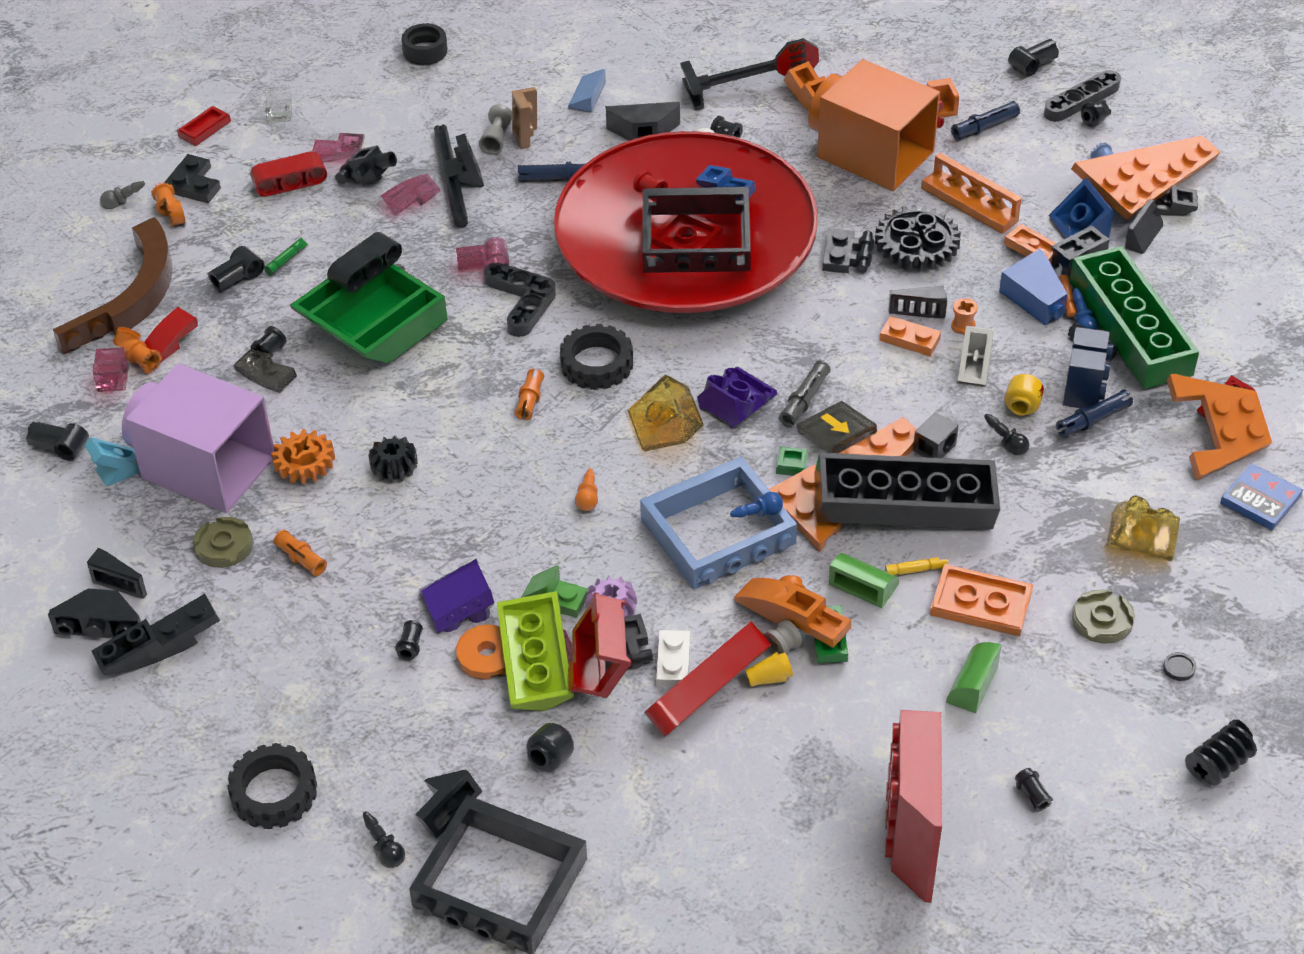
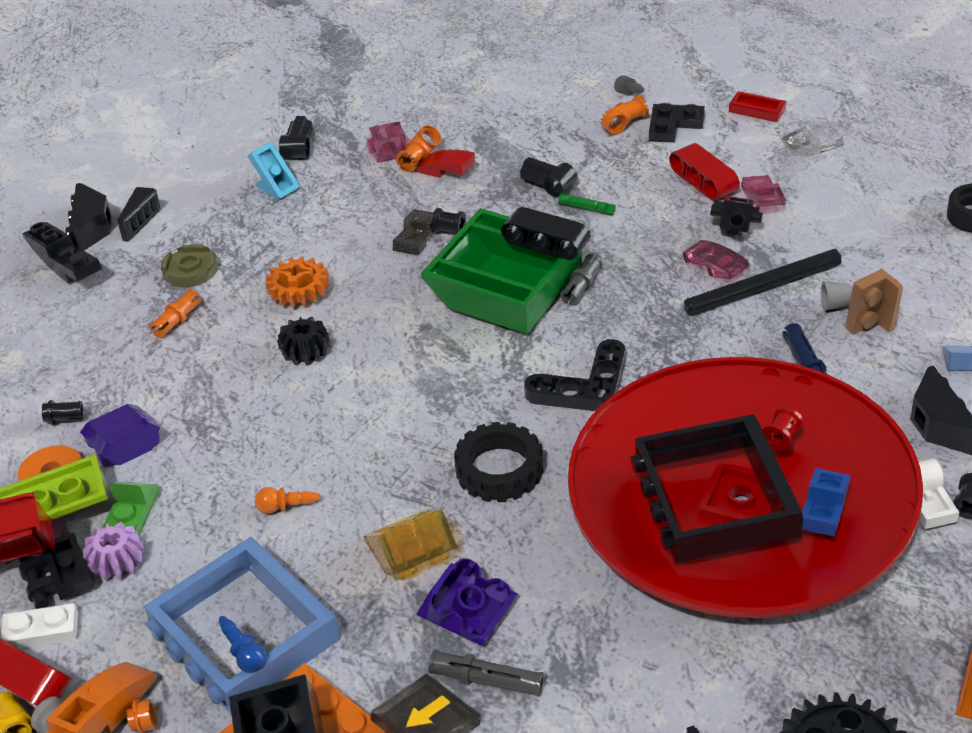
camera: 80 degrees right, 5 degrees down
(132, 304) = (503, 133): reddish brown arch -> none
(199, 436) = (280, 200): lavender container -> none
(464, 166) = (770, 280): black slope -> none
(480, 256) = (637, 338): clear pink piece -> none
(529, 394) = (425, 420): orange pin -> none
(791, 460) = (366, 683): tile -> none
(839, 249) = (788, 666): black plate -> none

